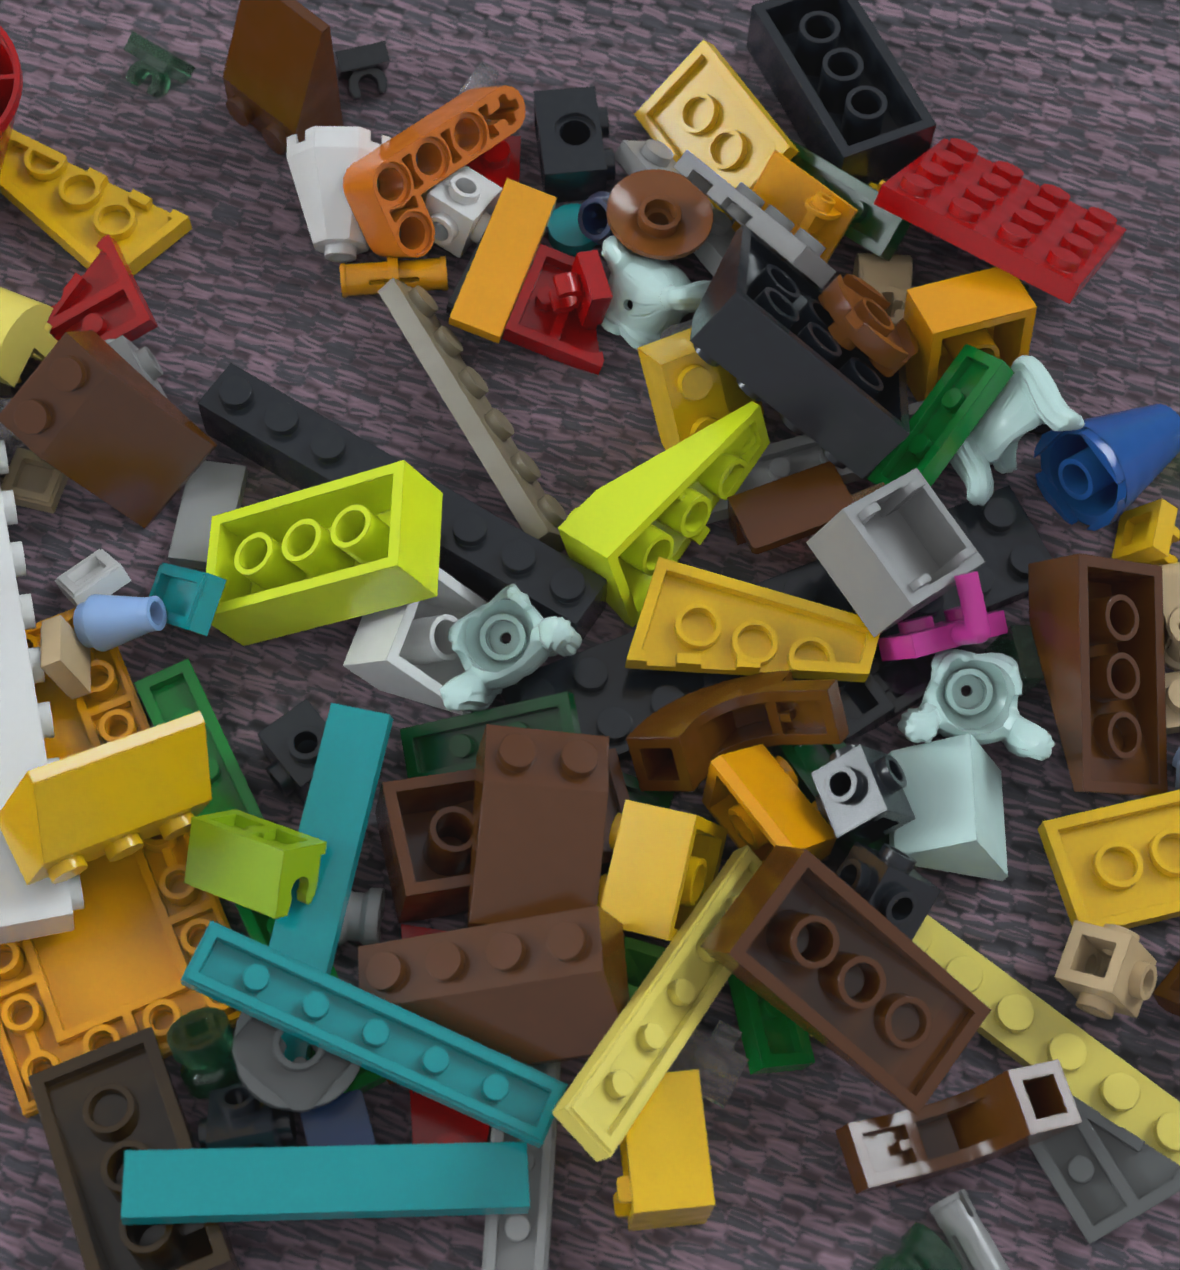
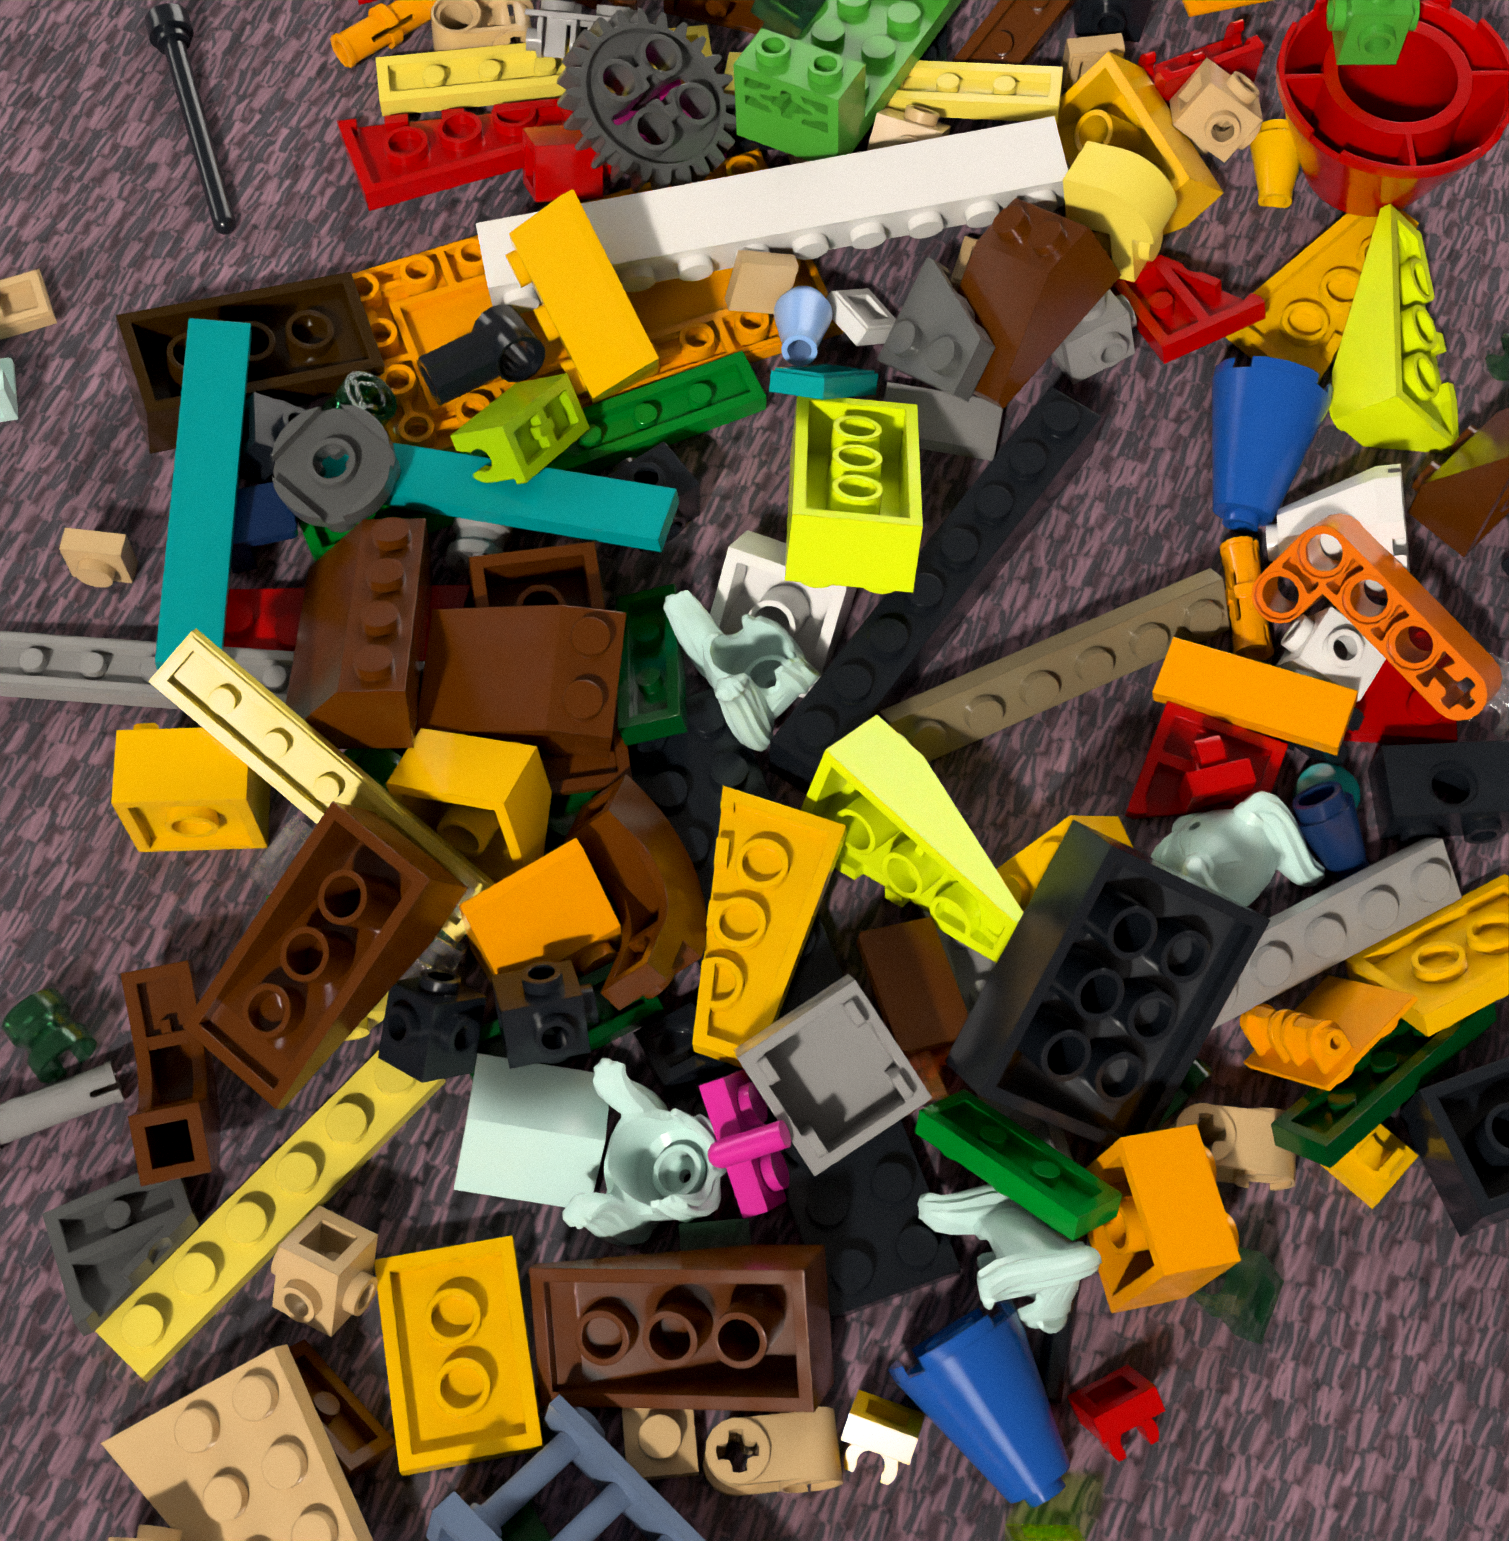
camera: 95 degrees right, 0 degrees up
(132, 502) = (938, 336): none -> dark grey wing
(136, 913) = (495, 348): none -> black piece
(178, 161) = (1387, 361): none -> neon yellow wedge
(245, 252) = (1261, 435): none -> blue cone
(374, 1034) = (331, 516): teal tile -> none
(661, 199) = (1332, 836): dark orange dish -> none
(770, 225) = (1300, 965): light grey wing -> none
(863, 323) = (1130, 1045): dark orange plate -> none
(1003, 217) = (1336, 1291): red plate -> none
(1096, 377) = (1116, 1406): none -> red tile

